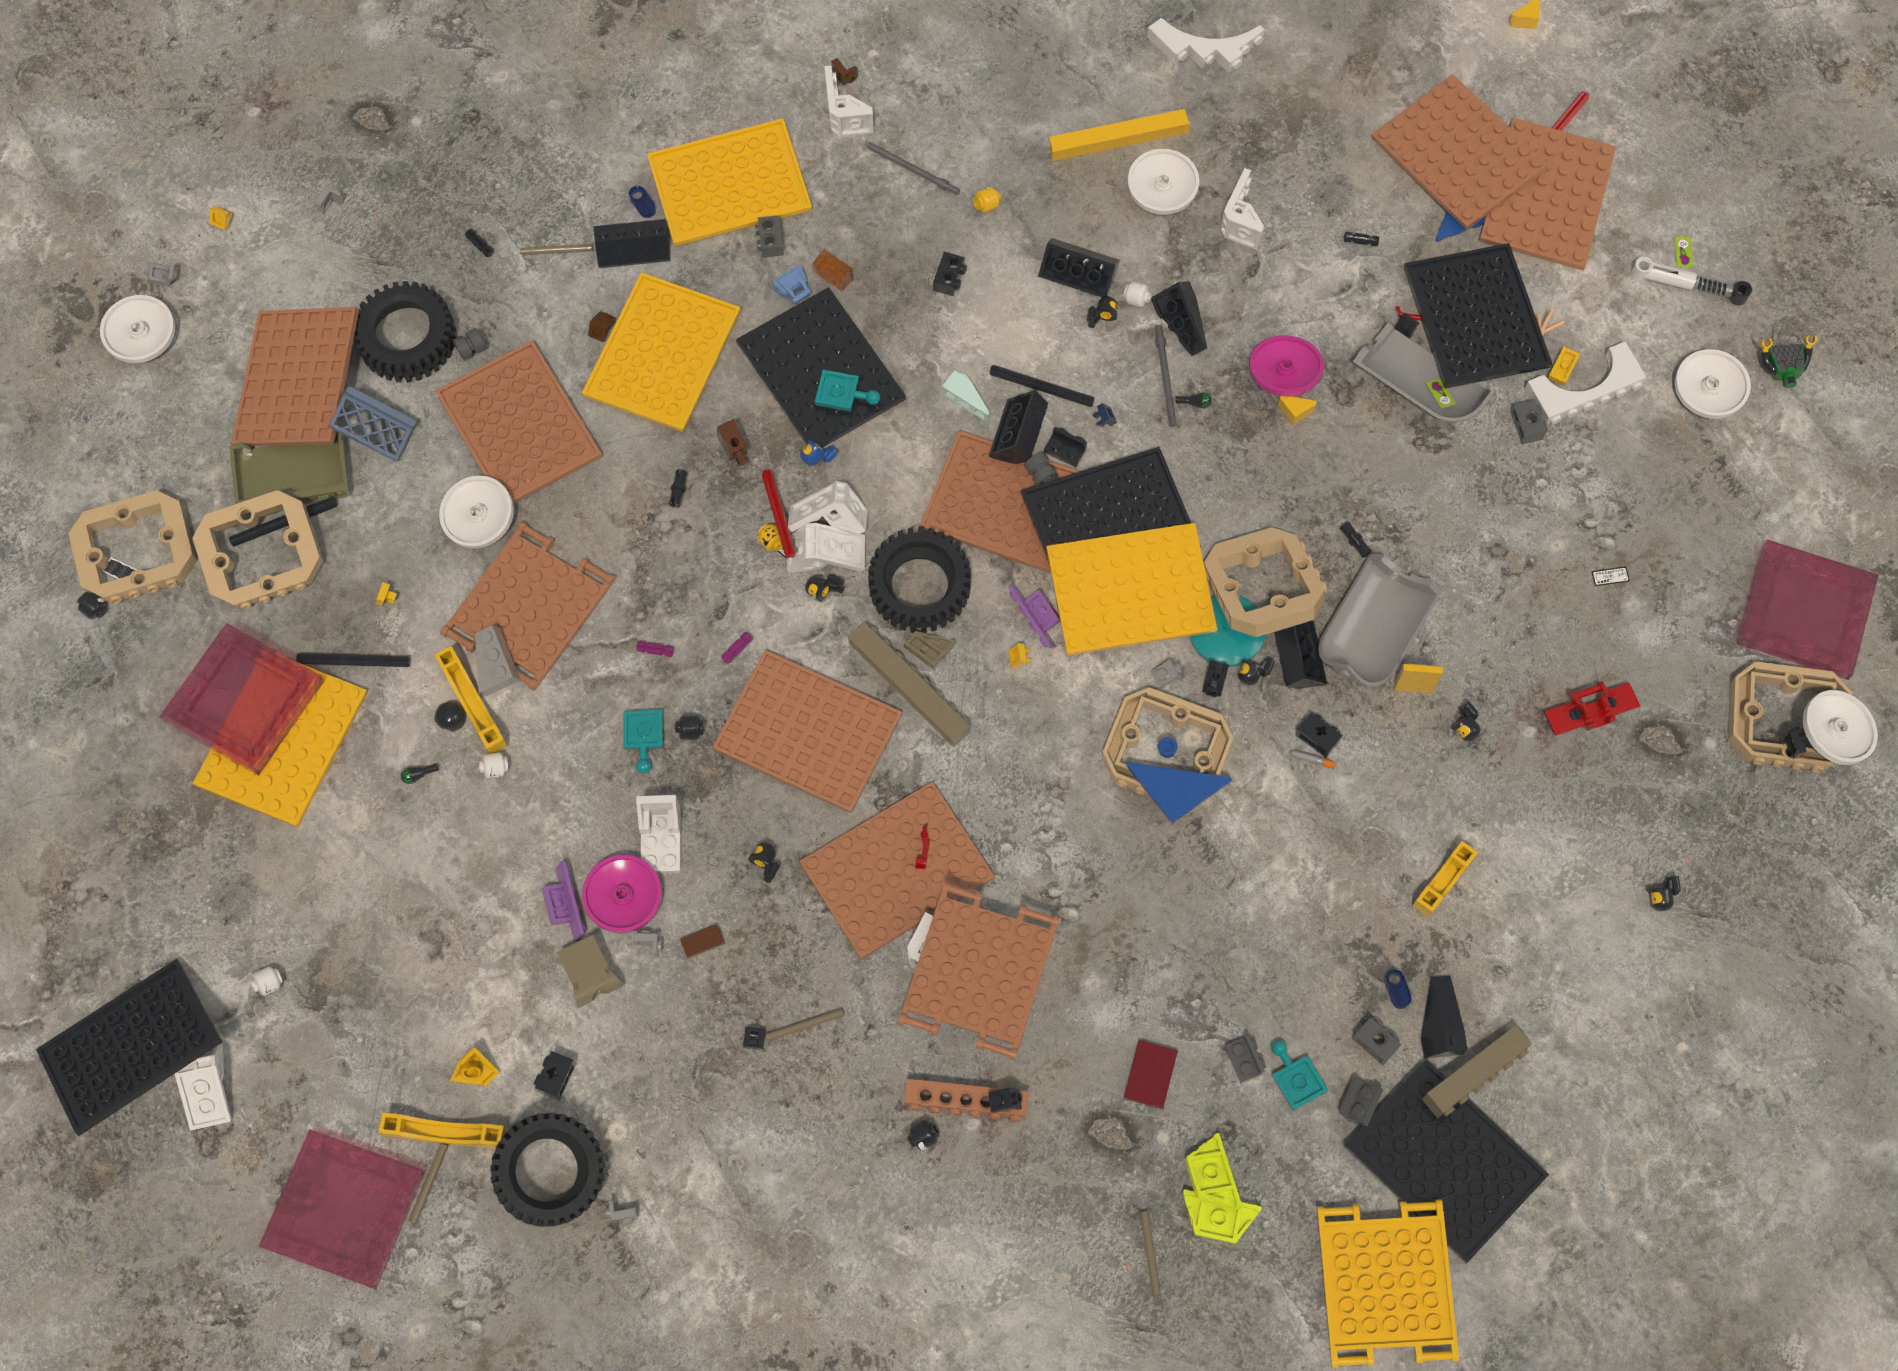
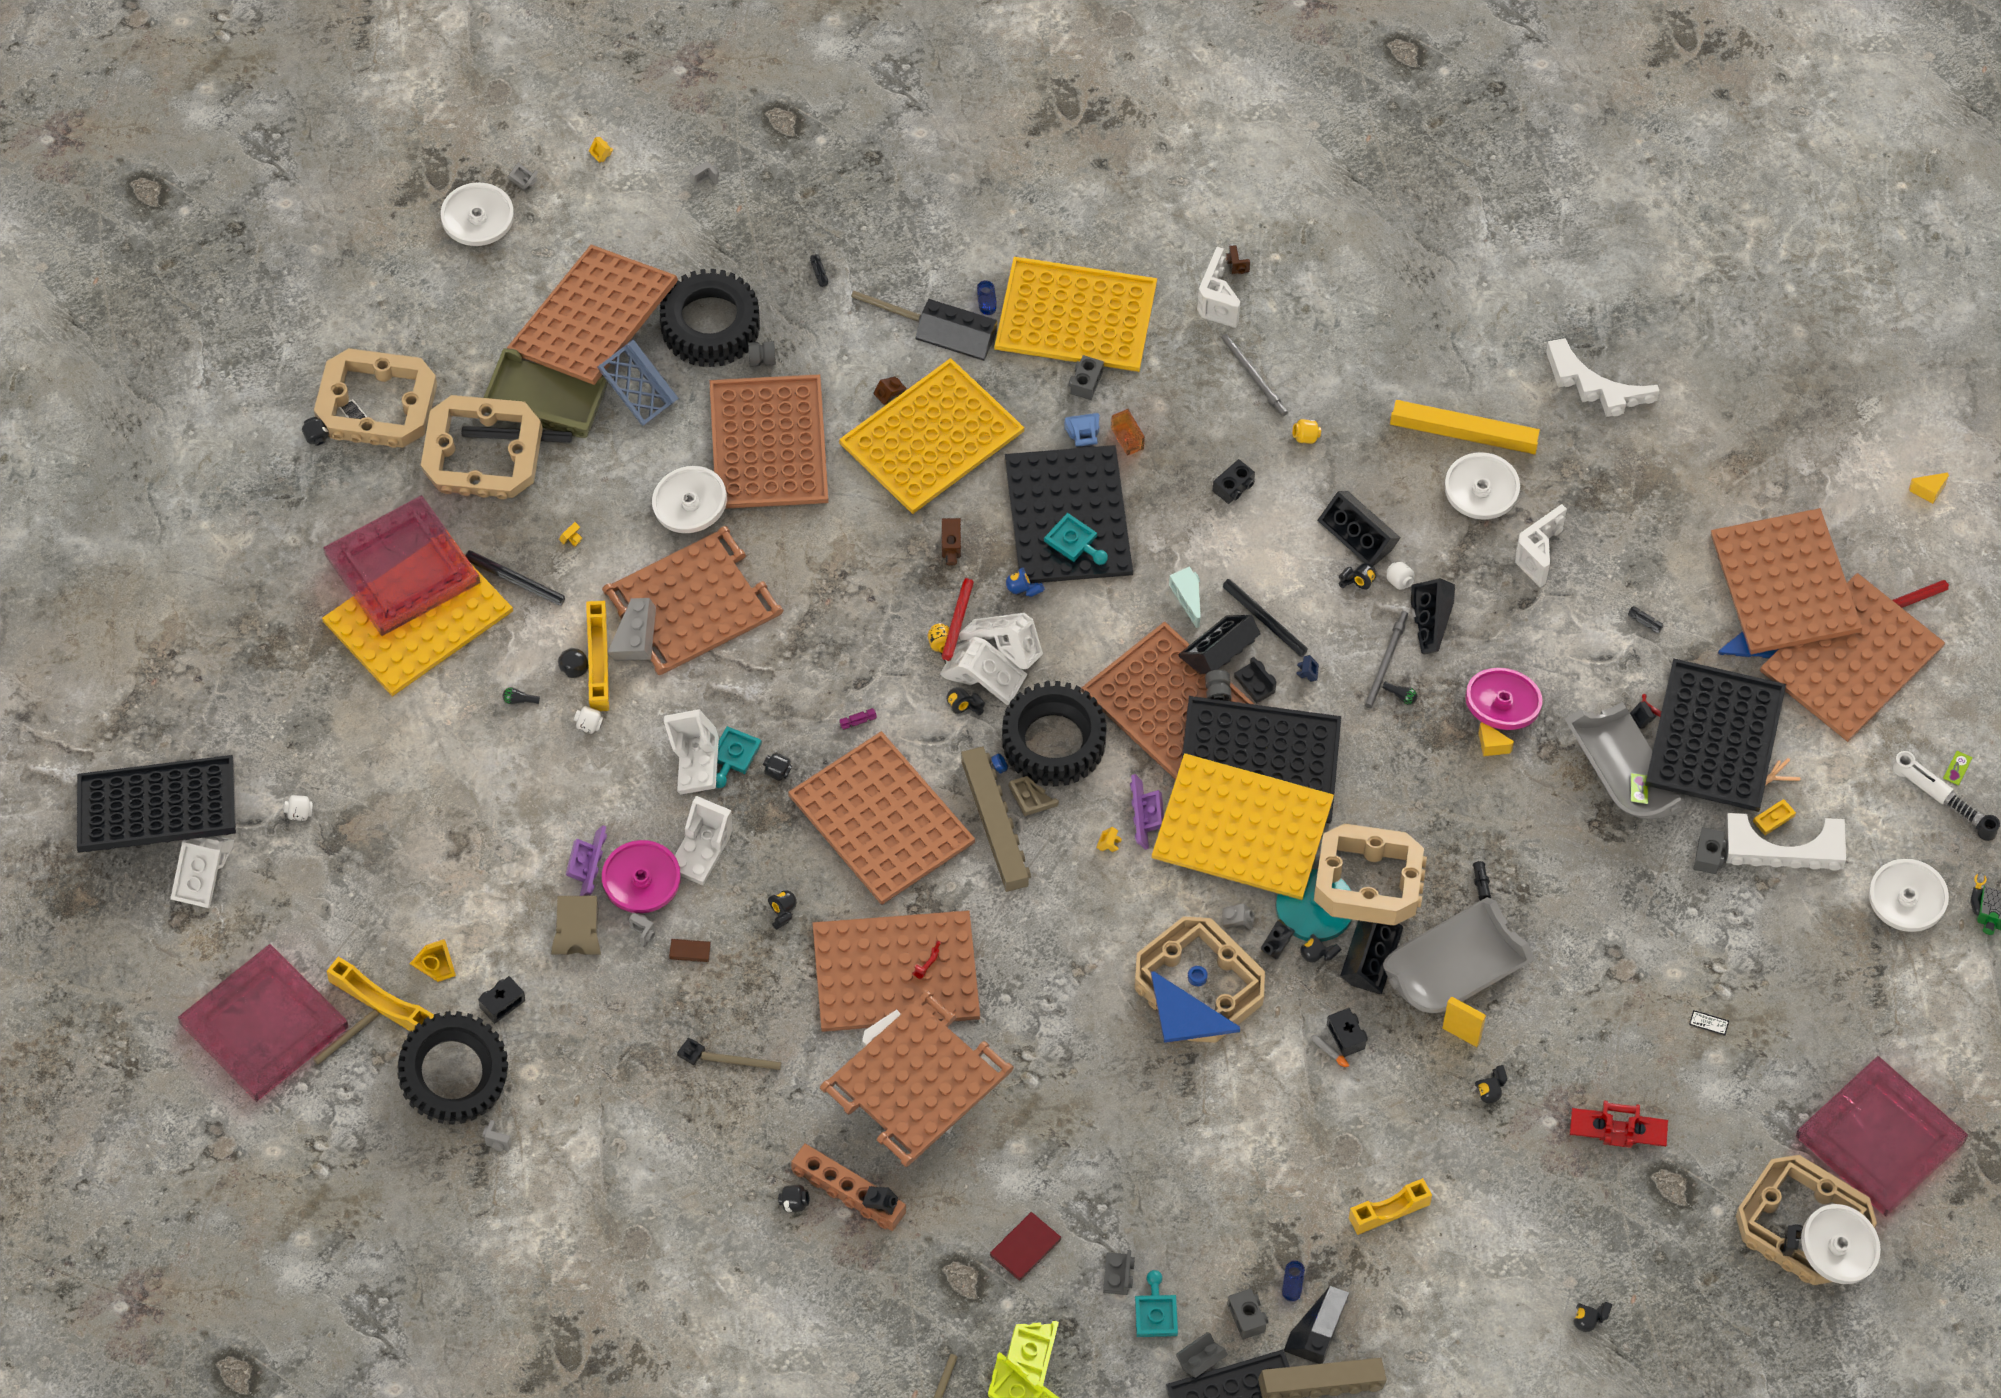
camera: 25 degrees right, 10 degrees down
(606, 742) = (696, 744): none -> white bracket
(654, 648) = (784, 687): magenta axle -> none
(677, 488) = (880, 559): black pin -> none
(885, 630) = (999, 763): none -> blue tile

